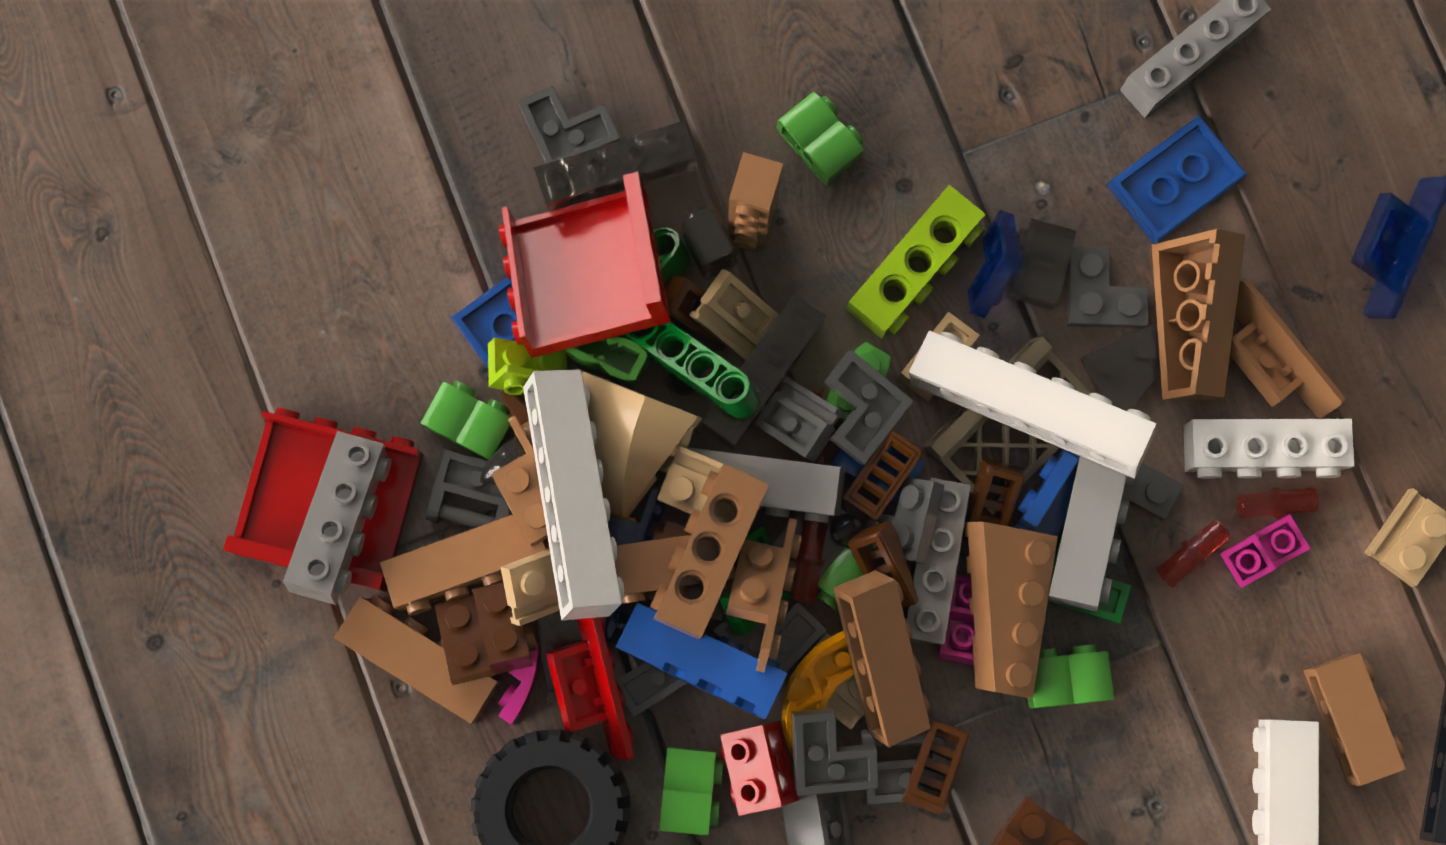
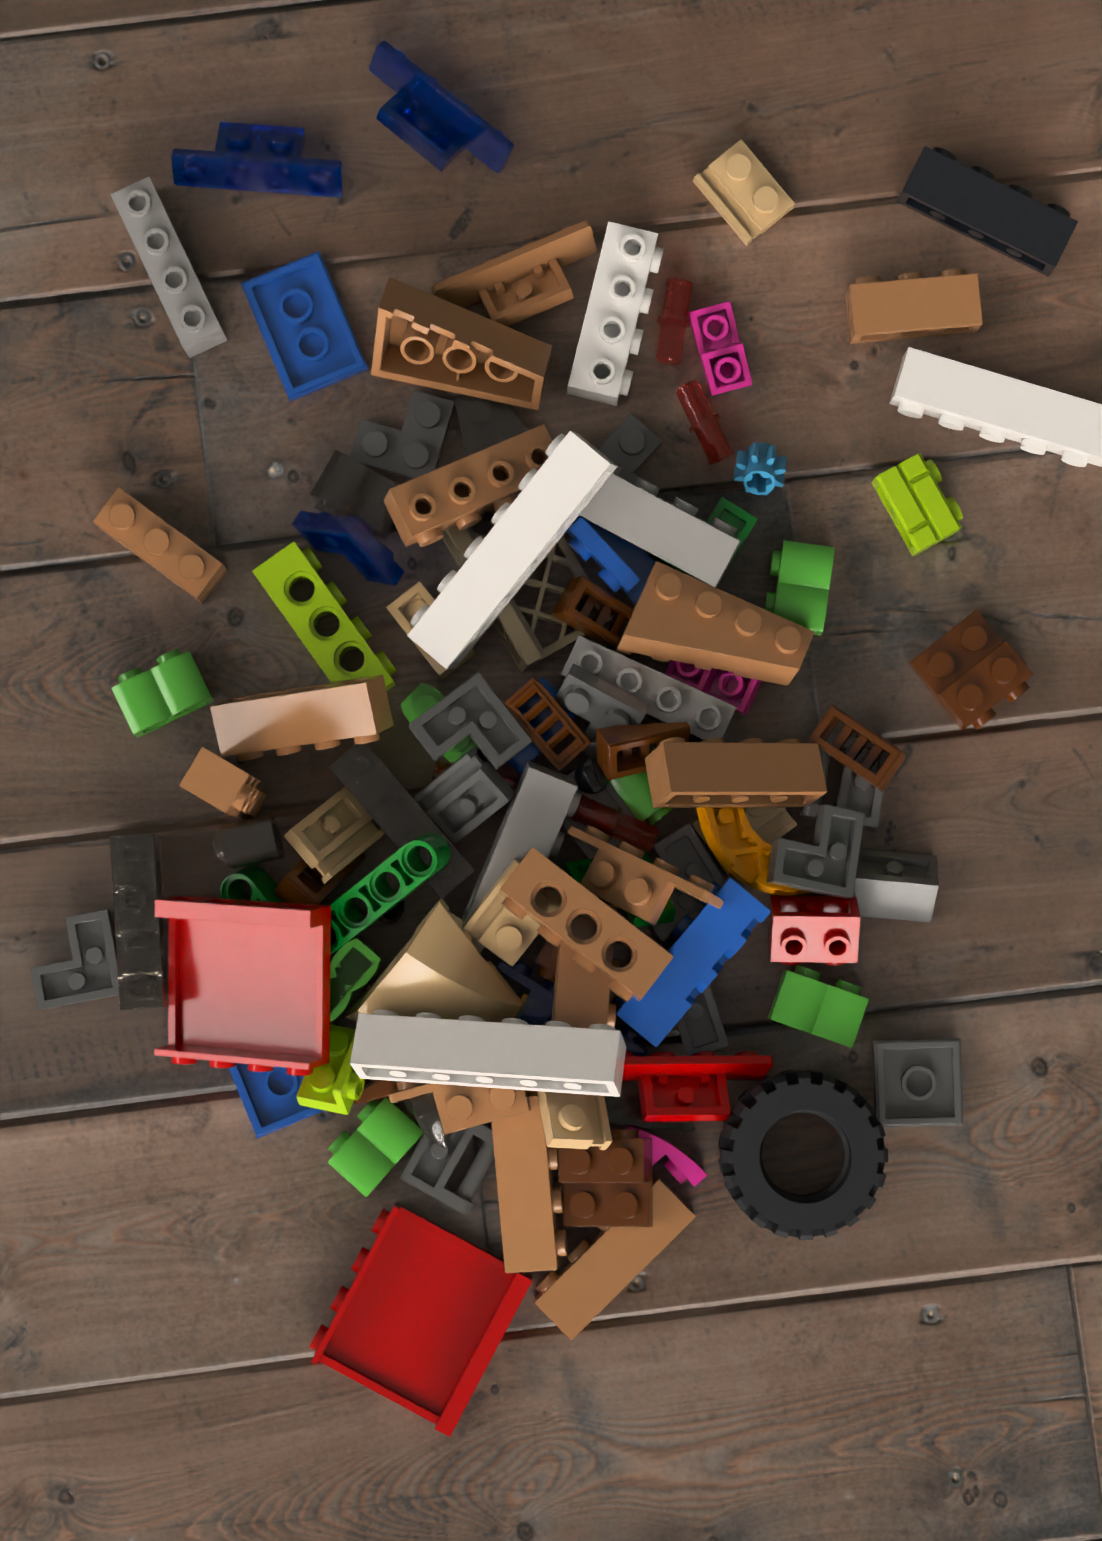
camera: 75 degrees left, 5 degrees up
(336, 518) = (446, 1307): light grey brick -> none
(832, 258) = (302, 717): none -> medium nougat brick
(949, 103) = (160, 545): none -> medium nougat brick
(1073, 346) = (465, 488): none -> medium nougat brick
(1166, 613) = (760, 468): none -> dark azure gear
(1175, 768) = (917, 503): none -> lime brick
(1310, 103) = (259, 161): none -> clear blue bracket

